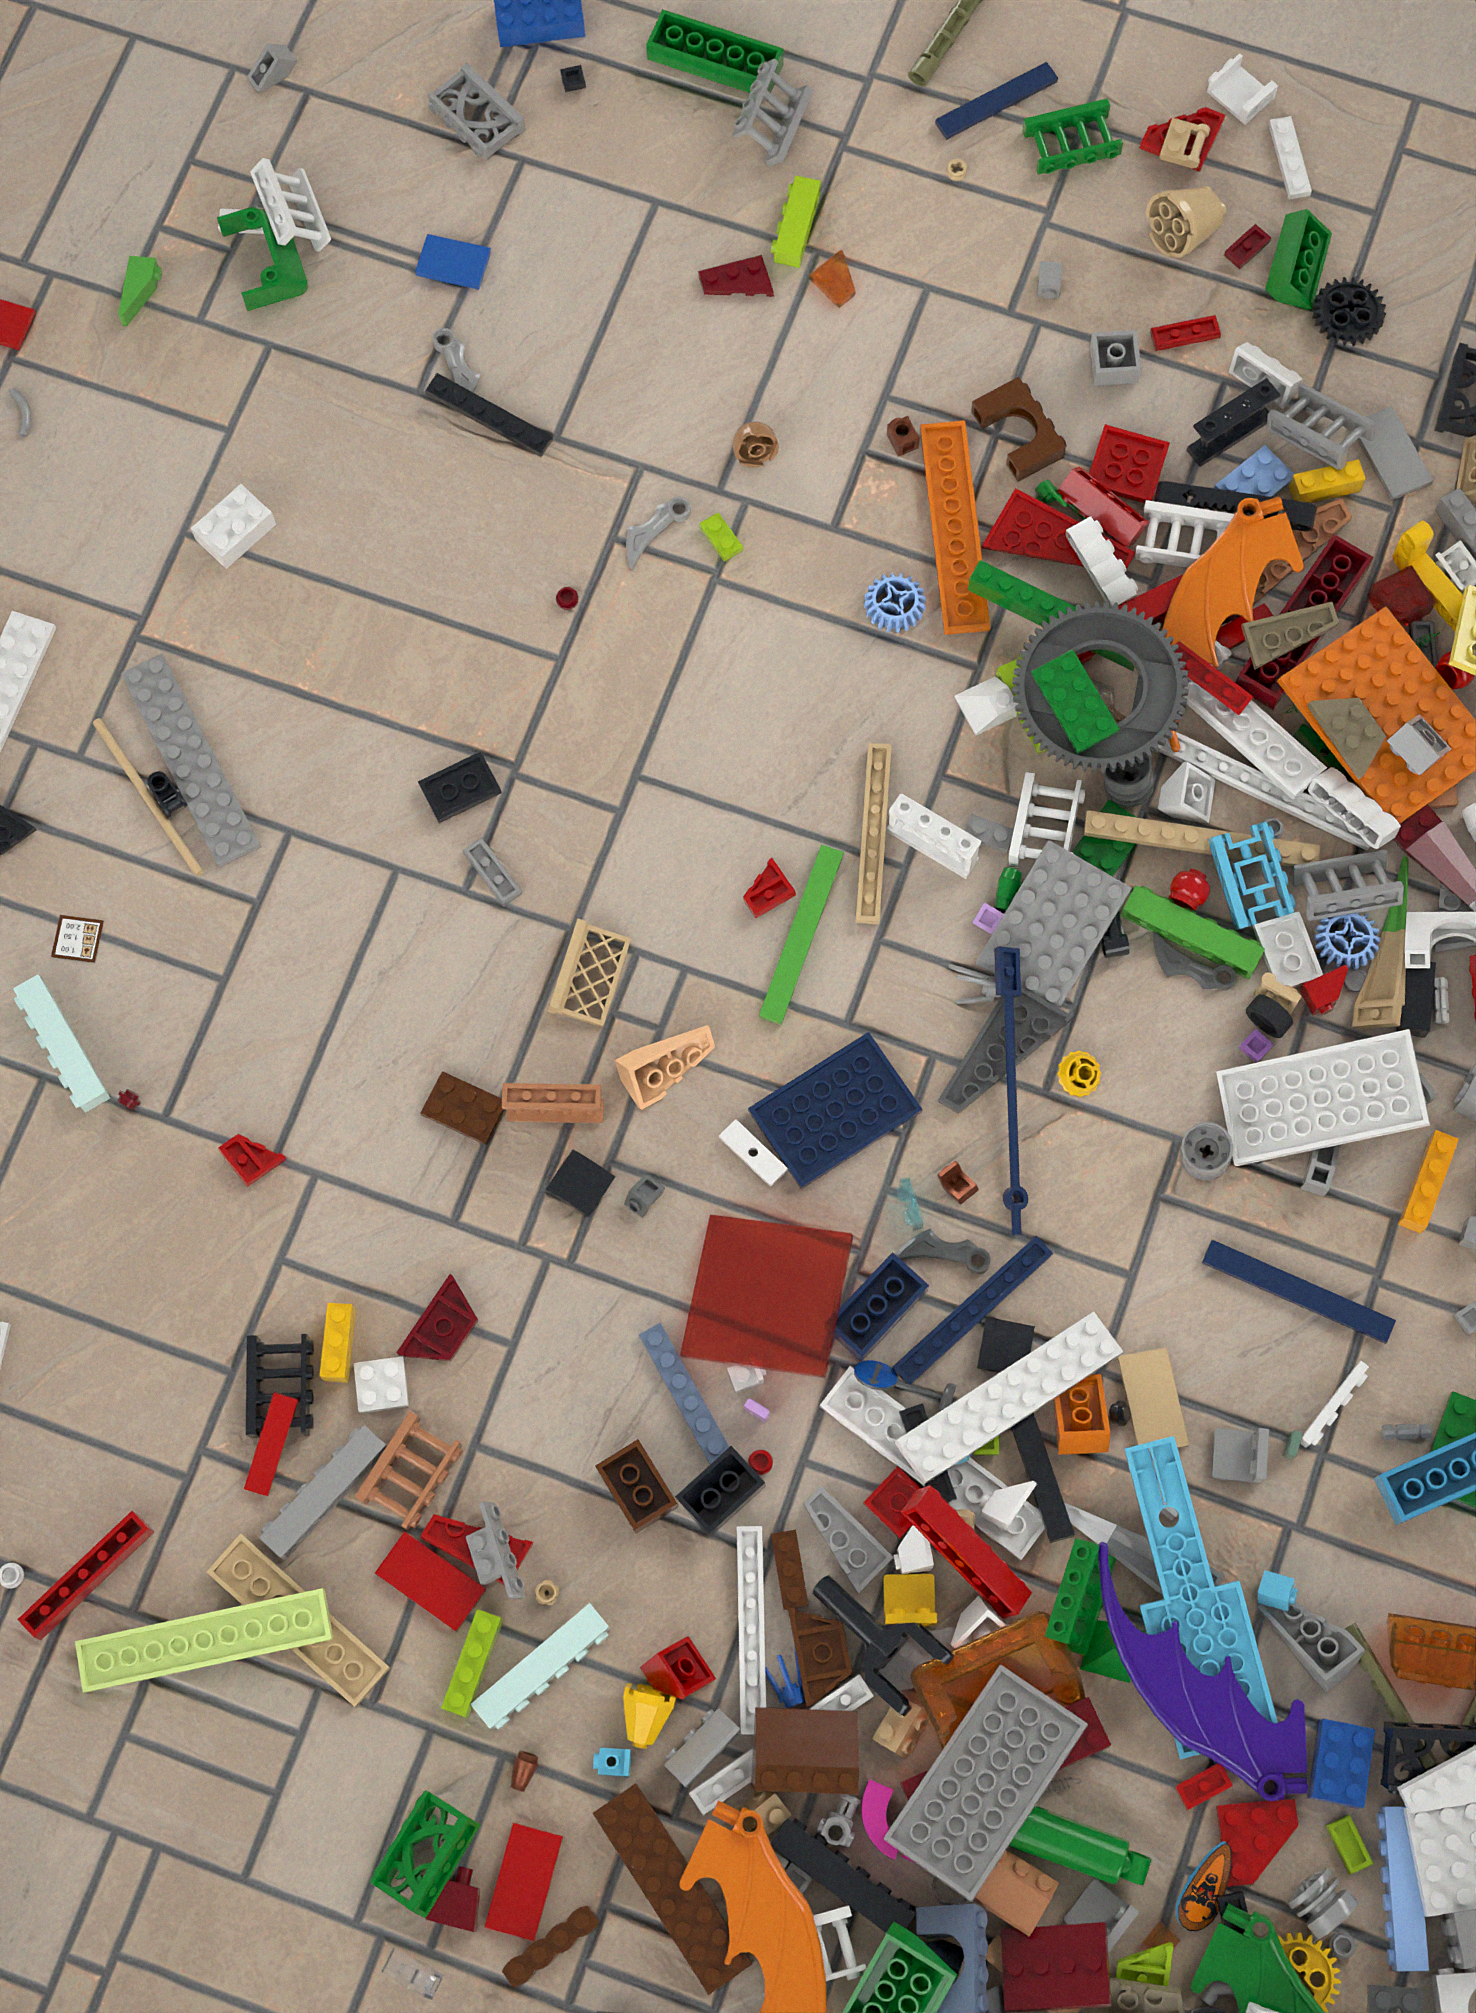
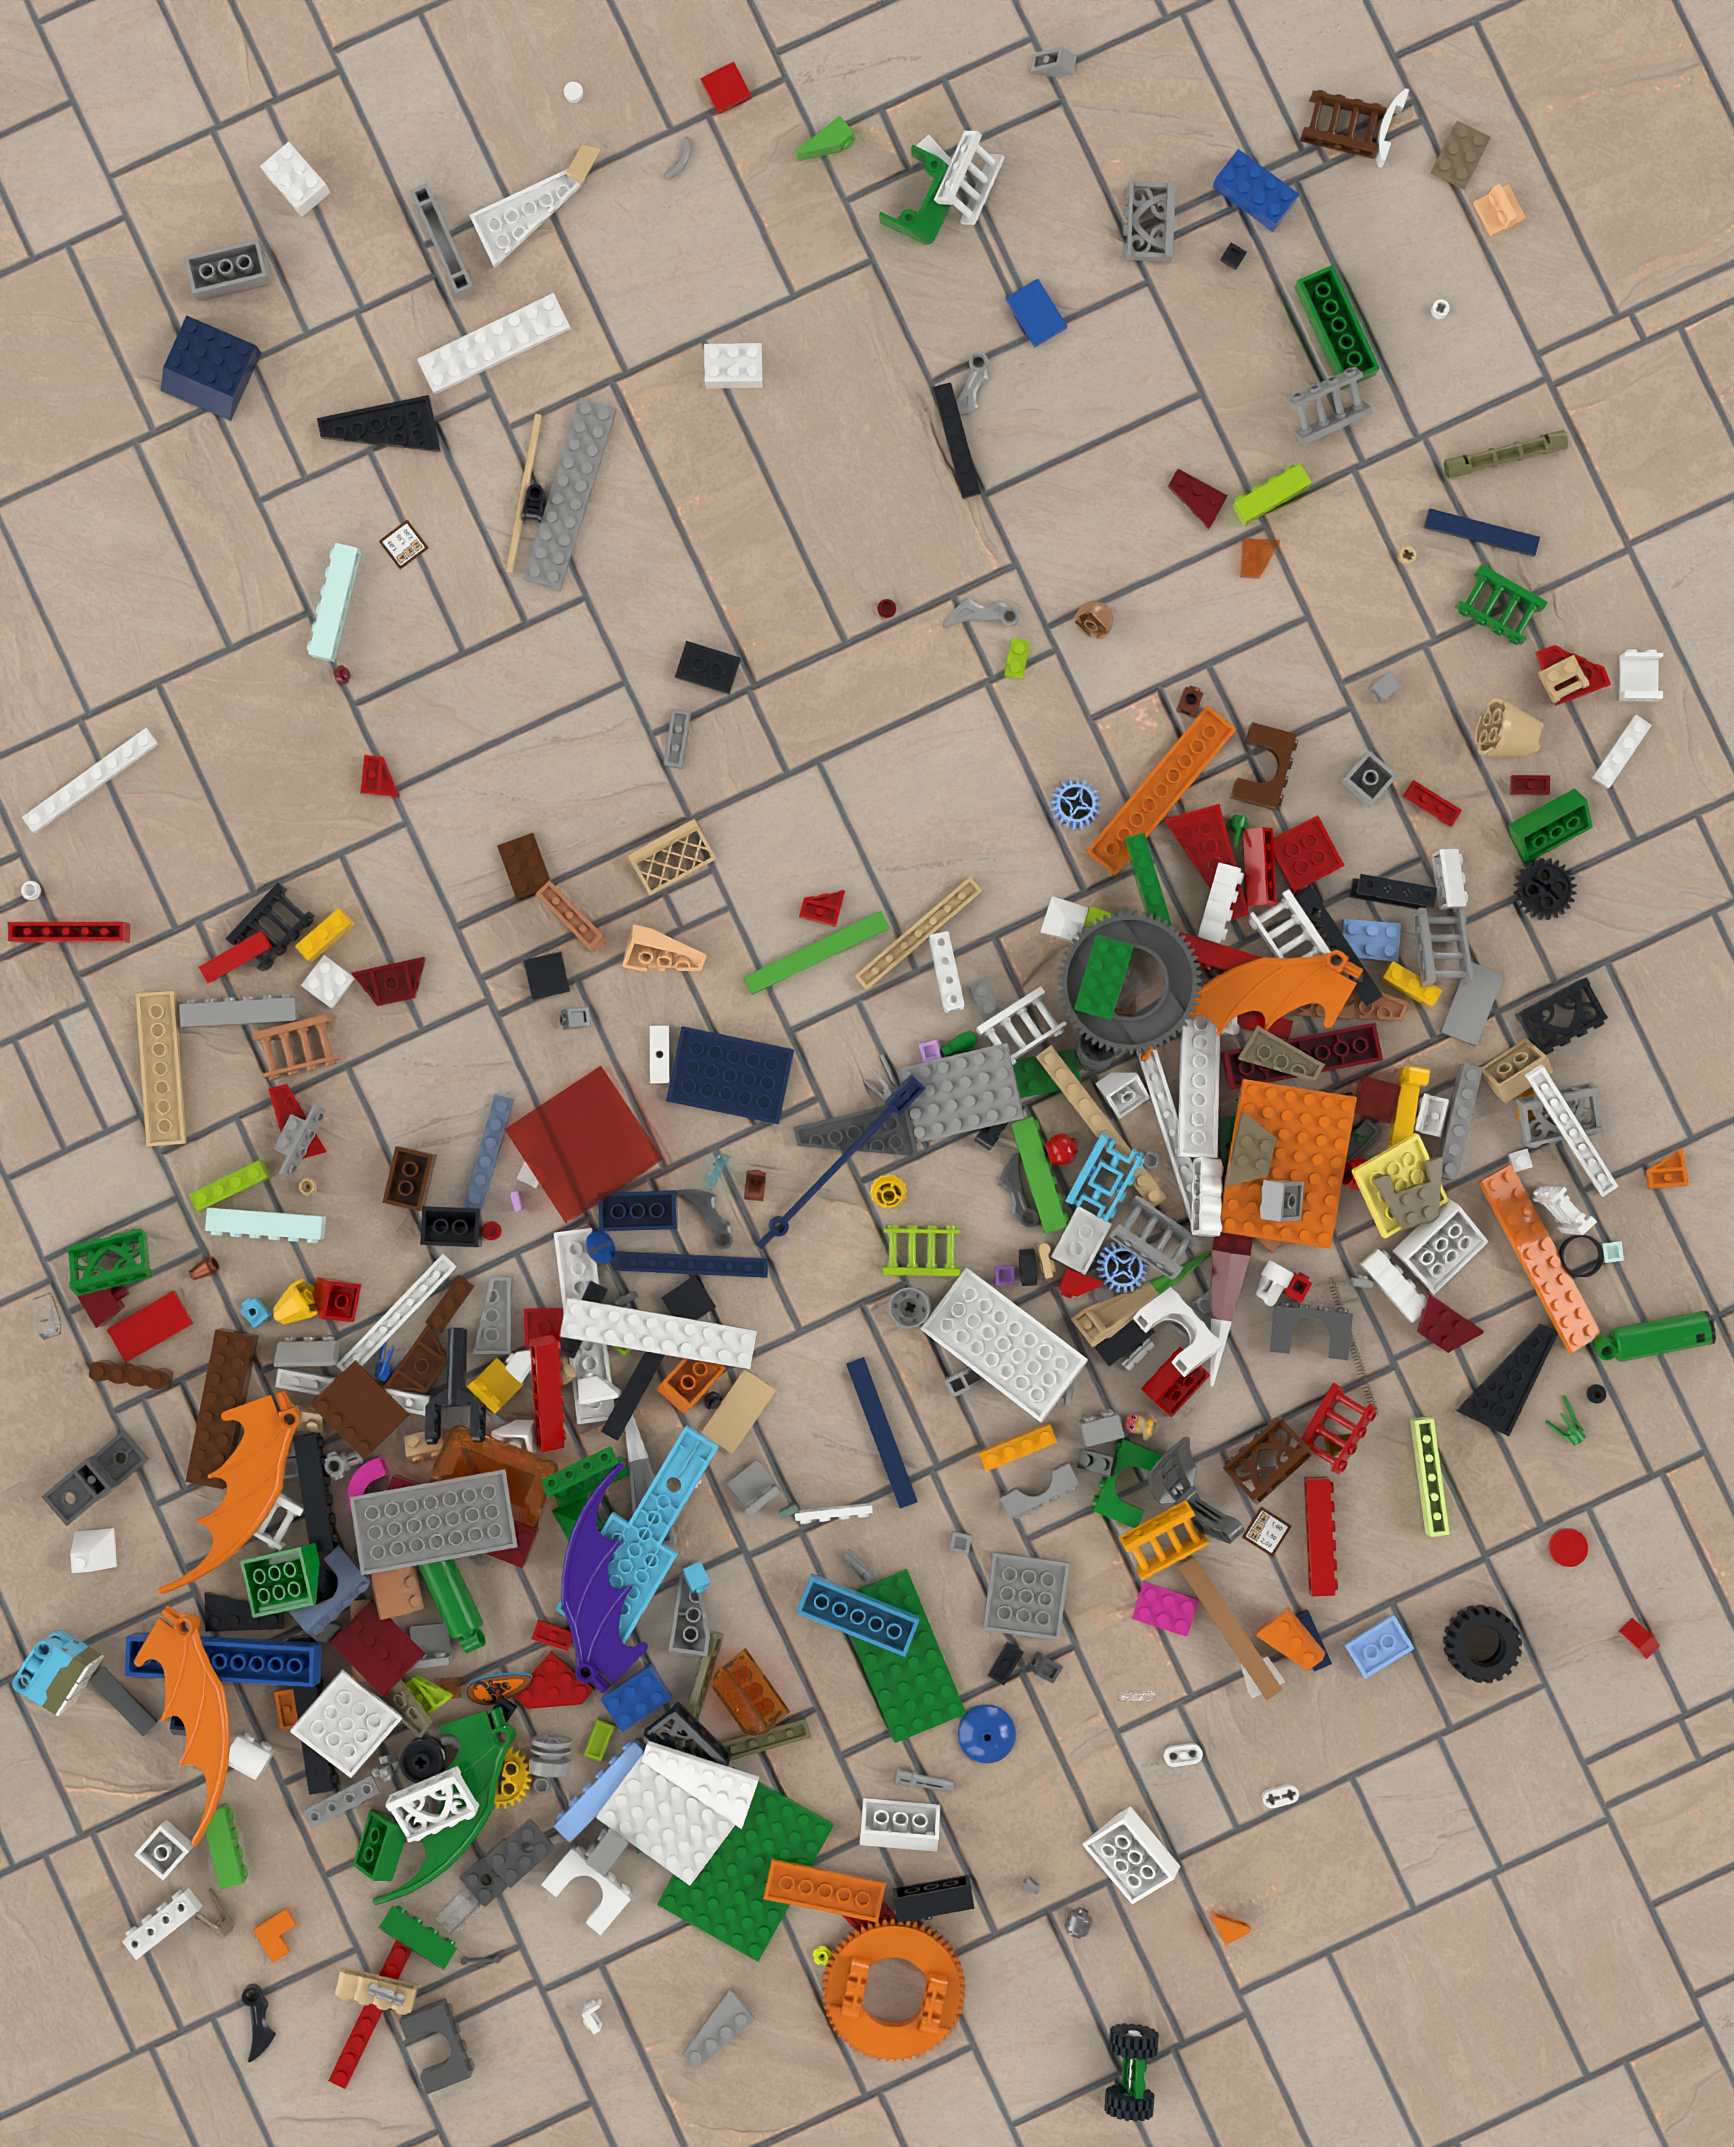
camera: 45 degrees right, 15 degrees up
(204, 1640) = (99, 1031): yellowish green plate -> none
(430, 1581) = (251, 1117): red tile -> none
(1169, 1118) = (912, 1267): none -> lime fence
(1213, 681) = (1205, 1038): red plate -> none

